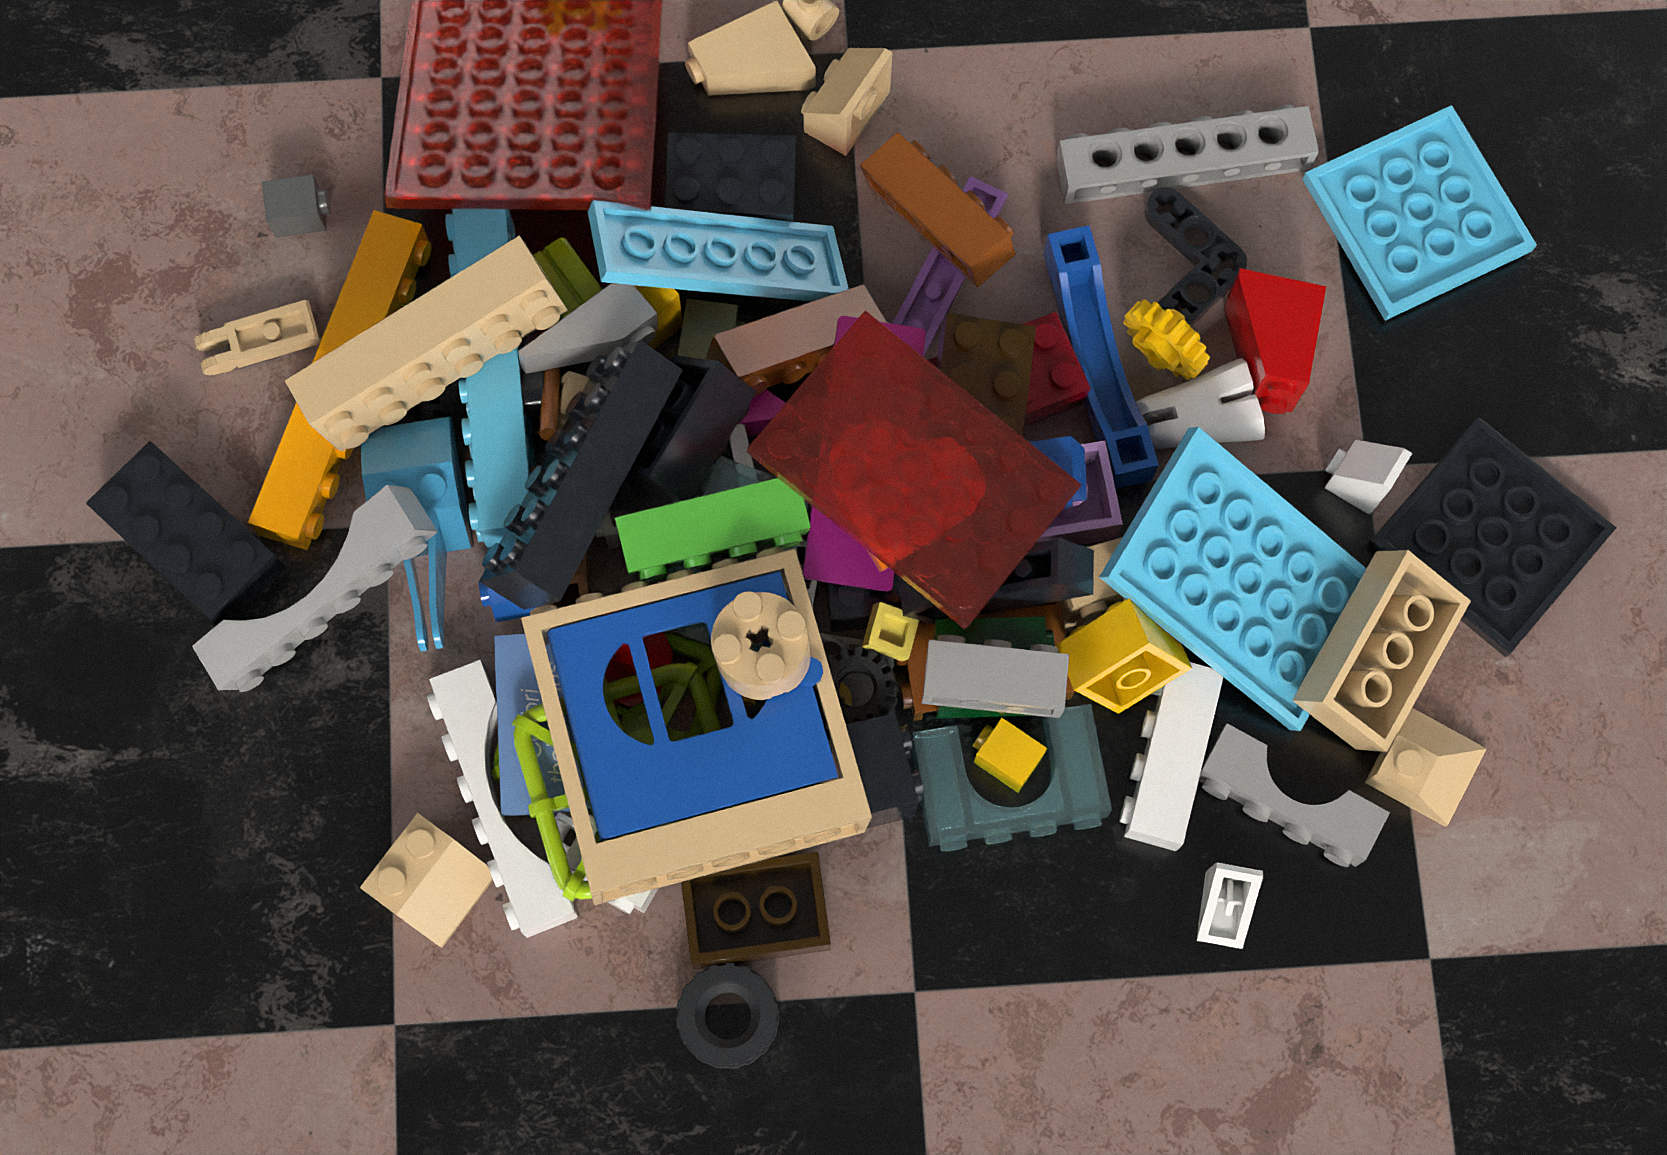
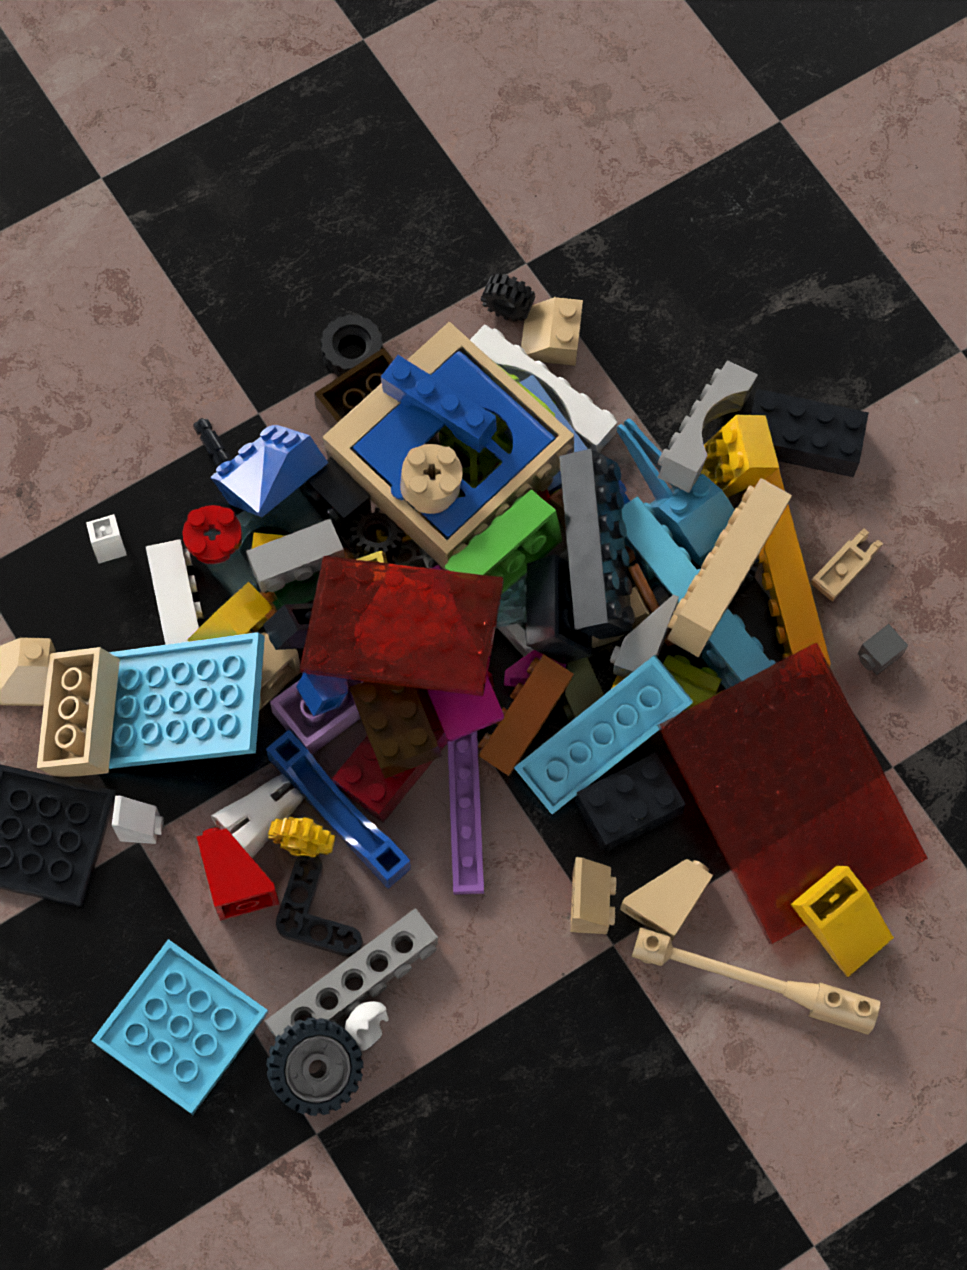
camera: 150 degrees right, 5 degrees down
(296, 521) = (740, 454): none -> yellow slope
(461, 960) = (508, 297): none -> black tyre
(686, 754) = (418, 388): none -> blue arch
(939, 209) = (490, 848): dark orange brick -> none
(958, 854) = (268, 469): none -> blue slope
(1006, 972) = (211, 441): none -> black axle
(1107, 796) = (208, 518): none -> red plate
(1196, 96) = (364, 1023): none -> white hair
(1239, 770) = (59, 609): light grey arch -> none
(1284, 71) = (331, 1083): none -> wheel

